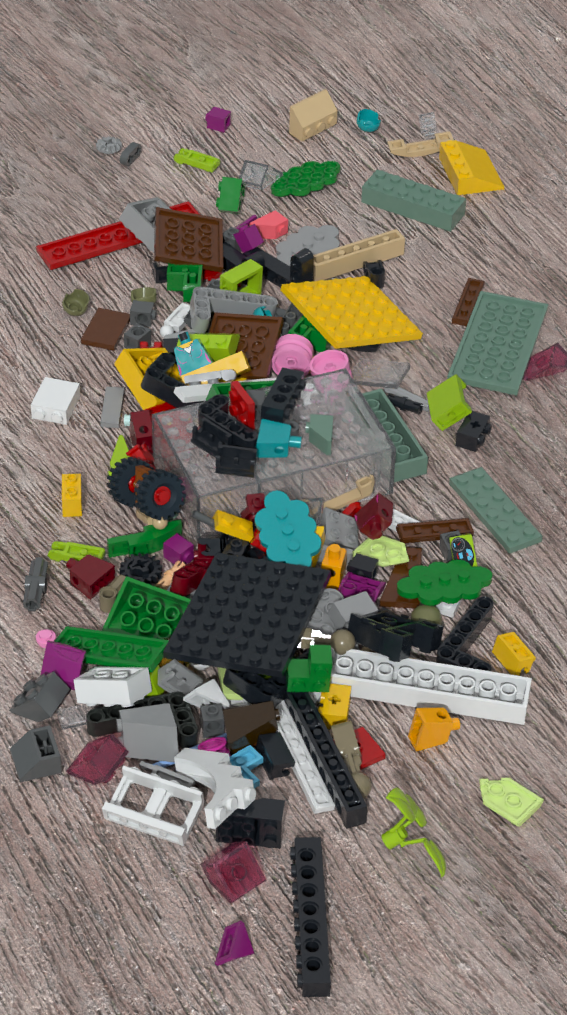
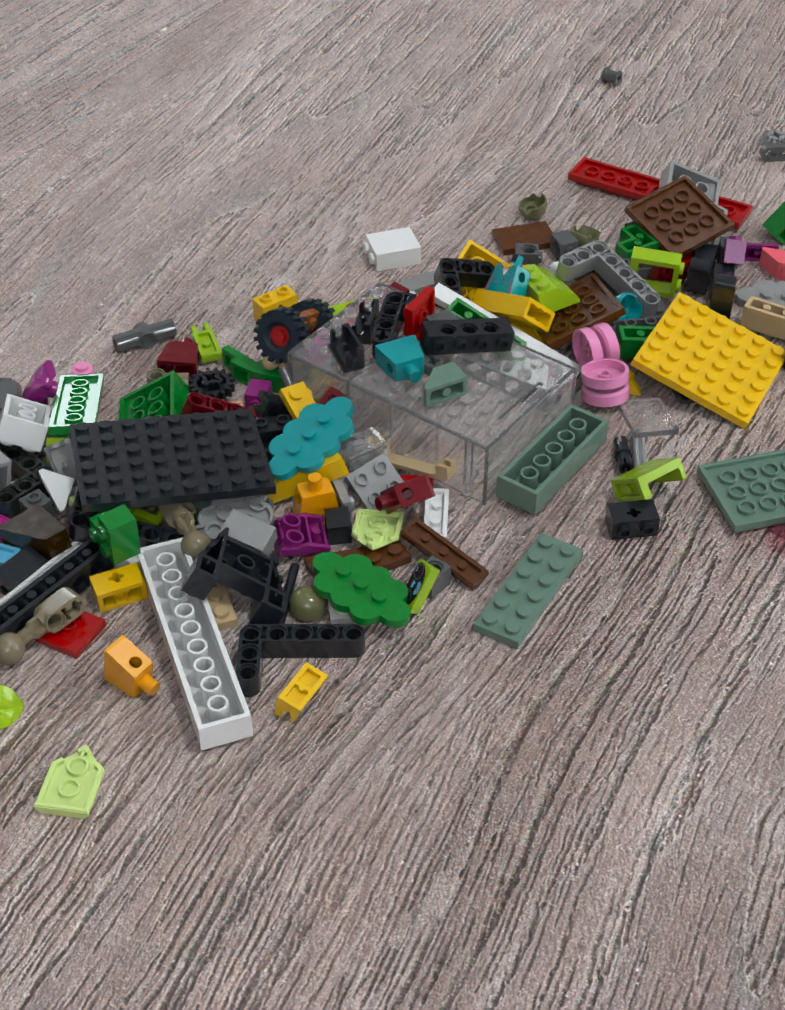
camera: 60 degrees right, 0 degrees up
(211, 377) = (487, 303): hinge -> none

